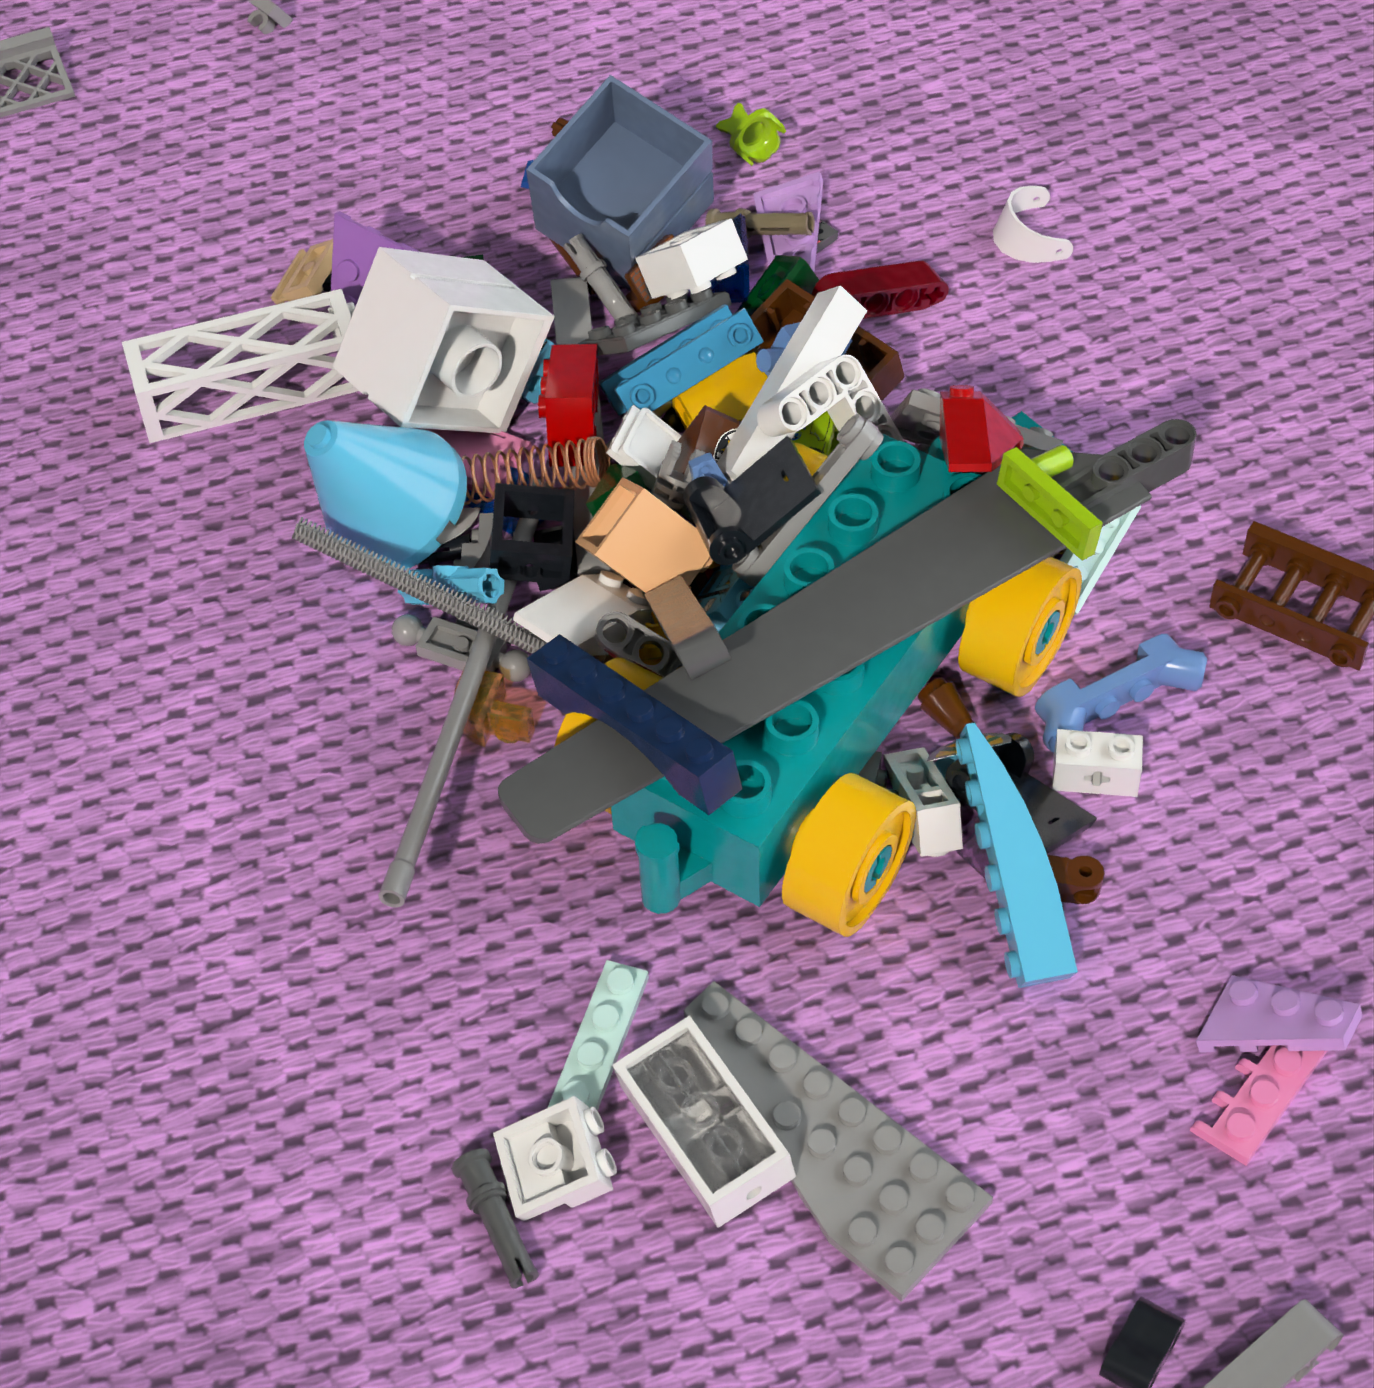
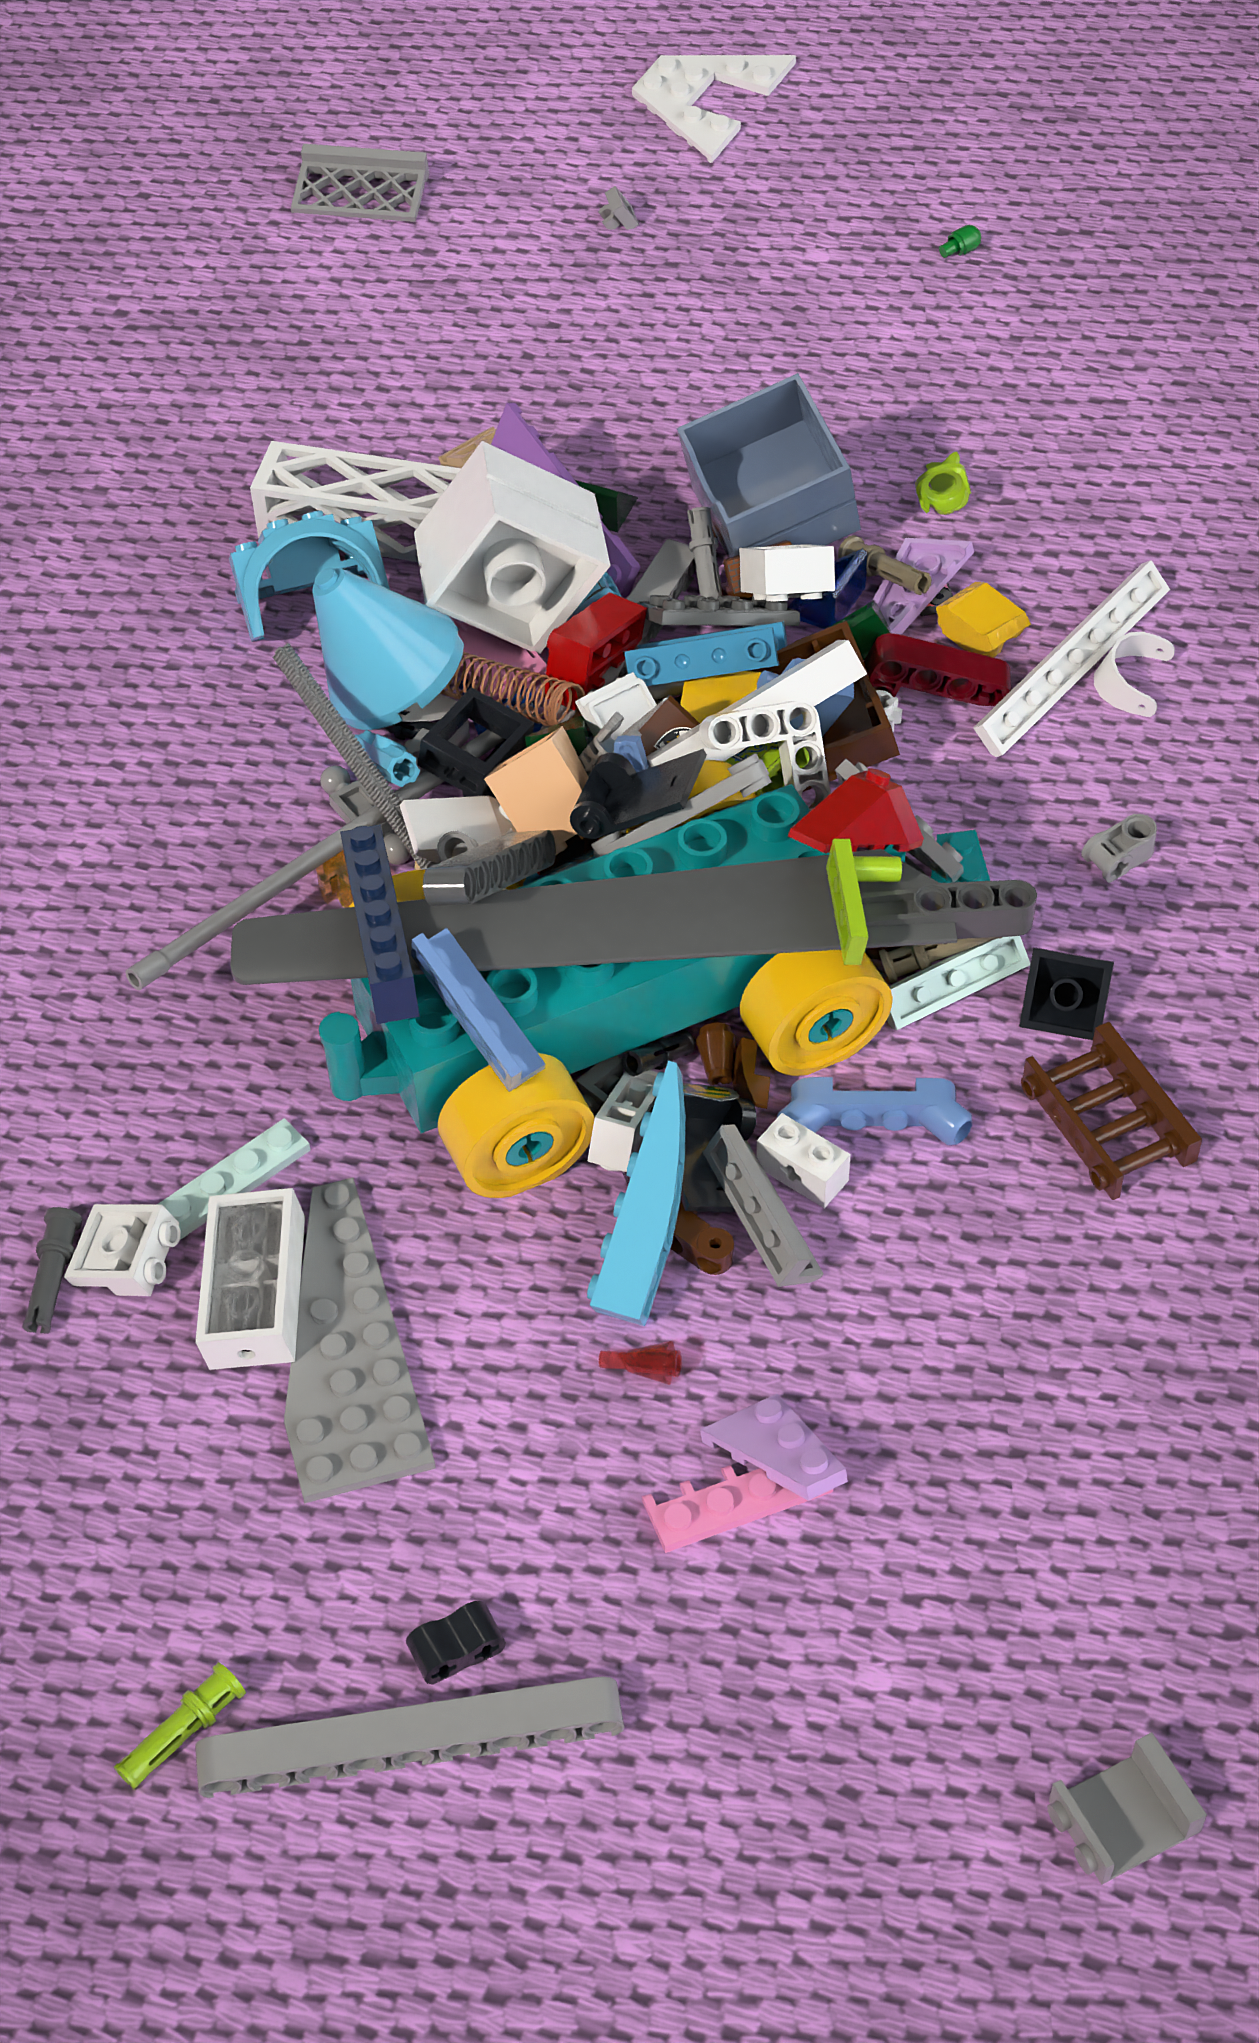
camera: 30 degrees right, 0 degrees up
(223, 437) = (297, 554): none -> medium azure piece
(788, 758) = (477, 1008): none -> medium blue fence
(870, 236) = (981, 619): none -> yellow slope
(902, 735) = (643, 1058): none -> black pin
(972, 238) = (1071, 659): none -> white plate
(990, 715) = (743, 1078): none -> reddish brown slope
(1099, 820) = (760, 1209): none -> light grey fence
(1108, 1004) = (653, 1362): none -> clear red cone
(1139, 372) = (1122, 846): none -> light grey piece
(1195, 516) = (1066, 993): none -> black slope

